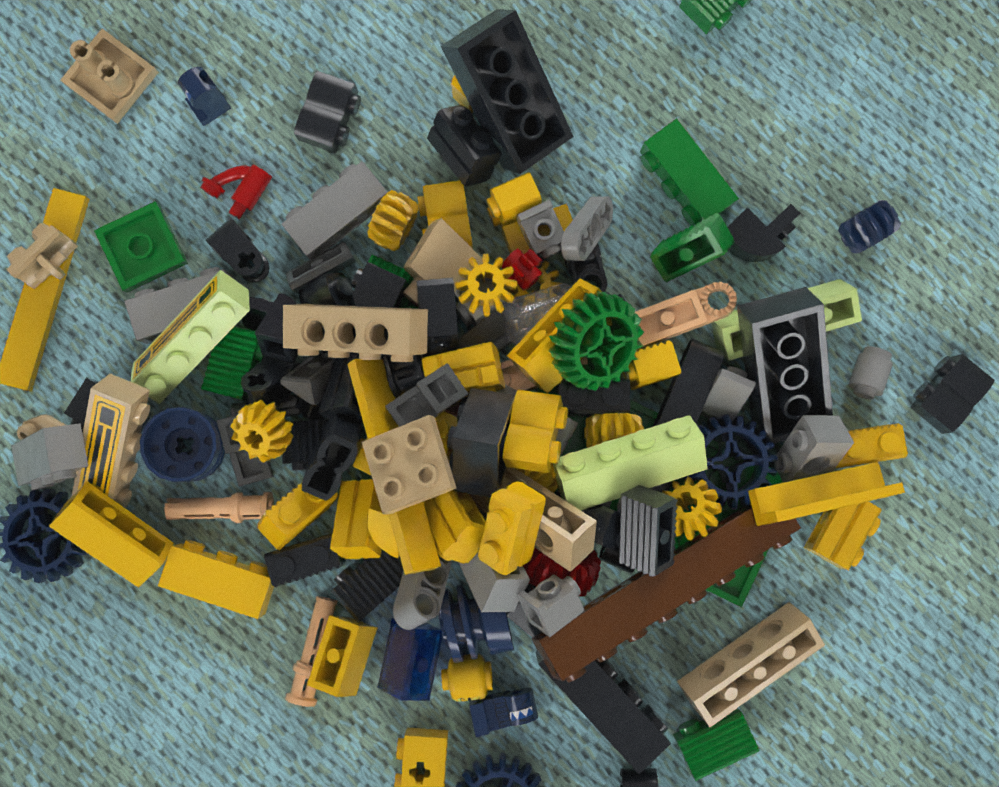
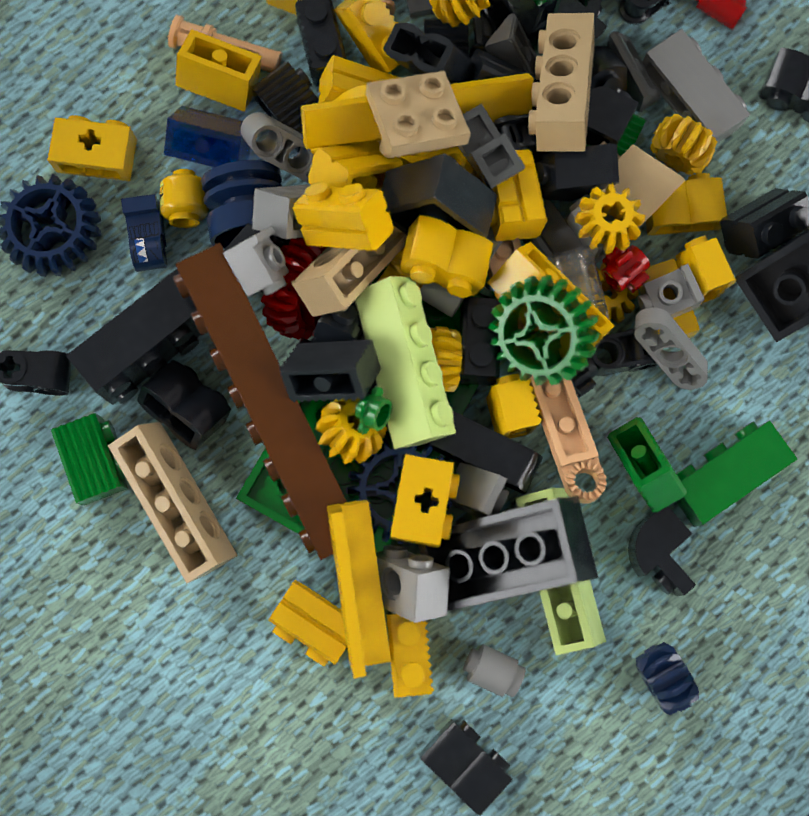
camera: 90 degrees right, 5 degrees down
(661, 660) = (184, 404): none -> black brick
(682, 488) = (373, 411): none -> green plate
(771, 444) = (417, 476): none -> yellow brick

